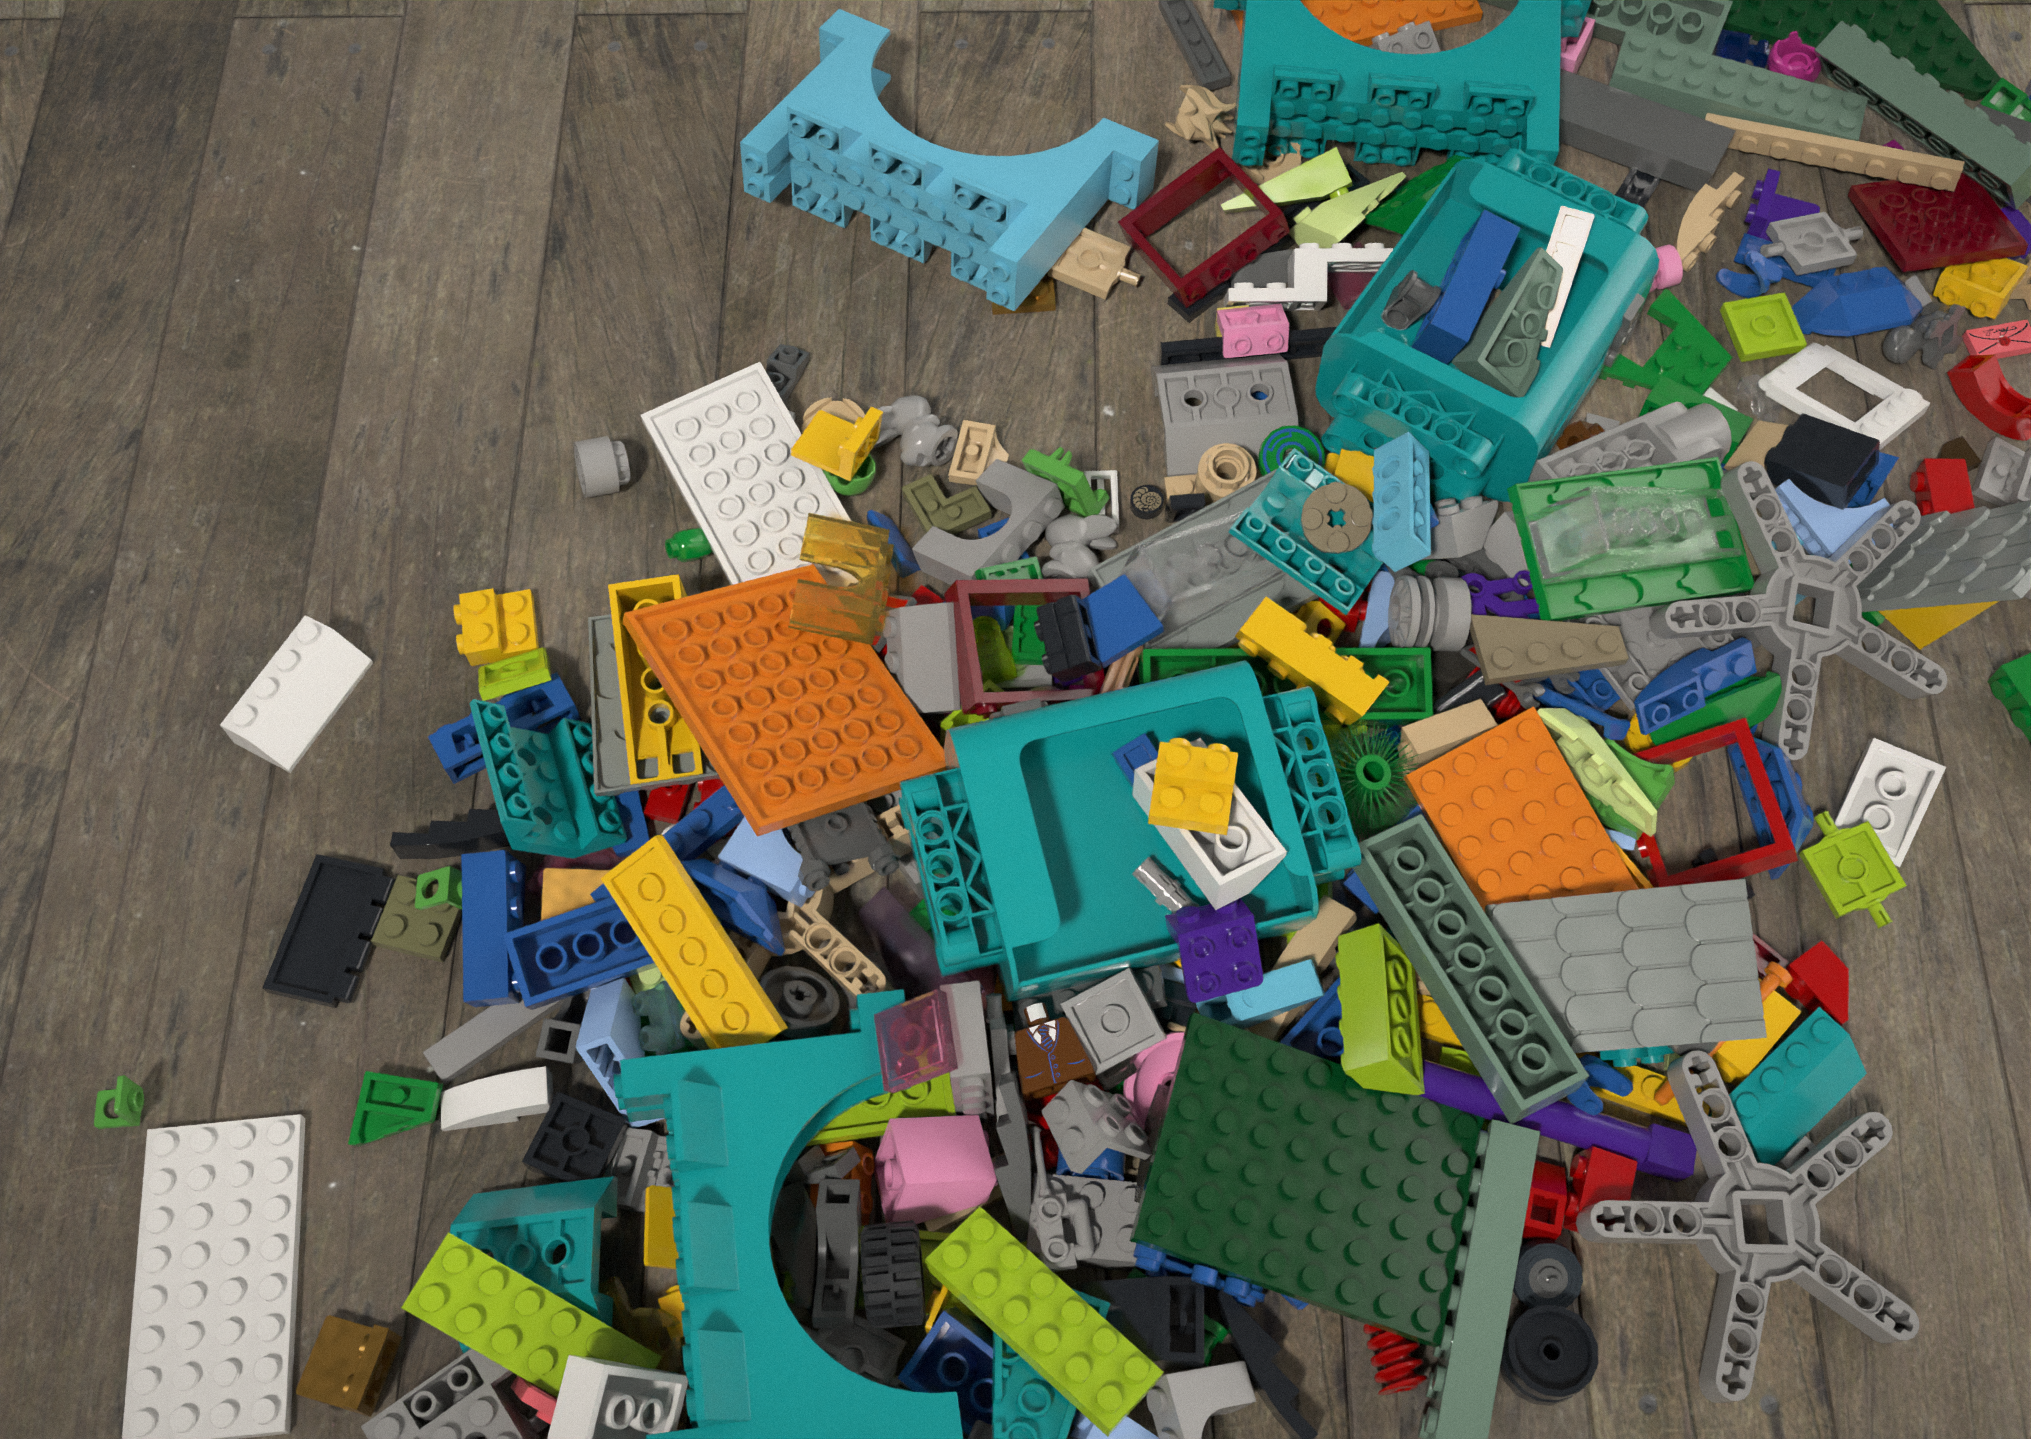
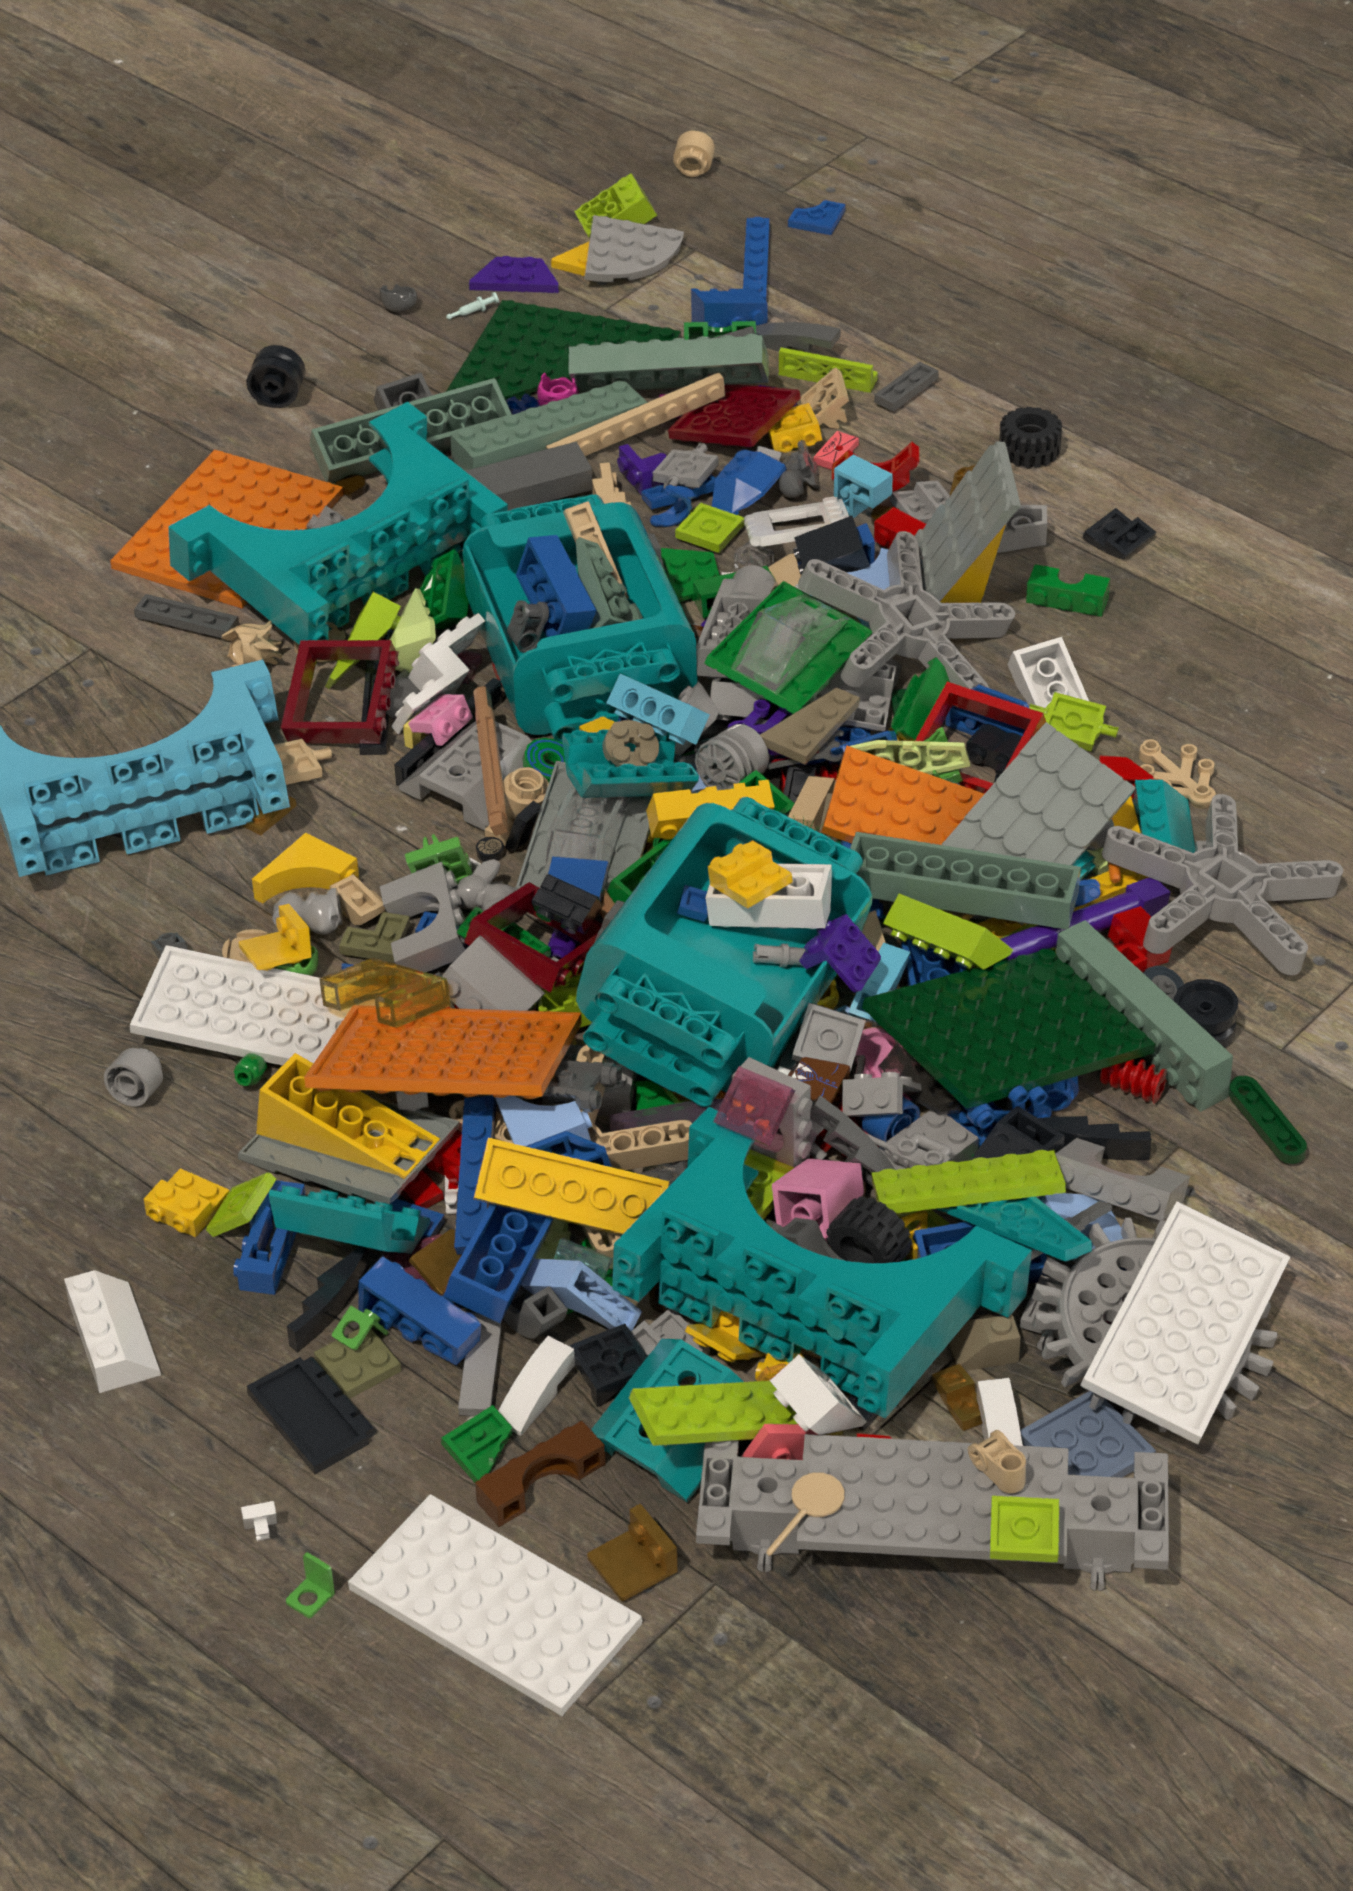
camera: 50 degrees left, 20 degrees down
(165, 995) = (259, 1517): none -> white tile
(347, 1180) = (570, 1453): none -> reddish brown arch
(974, 376) = (304, 865): none -> yellow arch
(1225, 415) = (490, 761): none -> medium nougat piece
(1492, 16) = (352, 486): none -> dark brown tile
(1690, 680) = (897, 691): blue slope -> none
(1732, 823) = (991, 746): none -> black brick
(1891, 1038) = (1198, 794): none -> tan plant
(1961, 405) = (861, 484): none -> medium azure brick

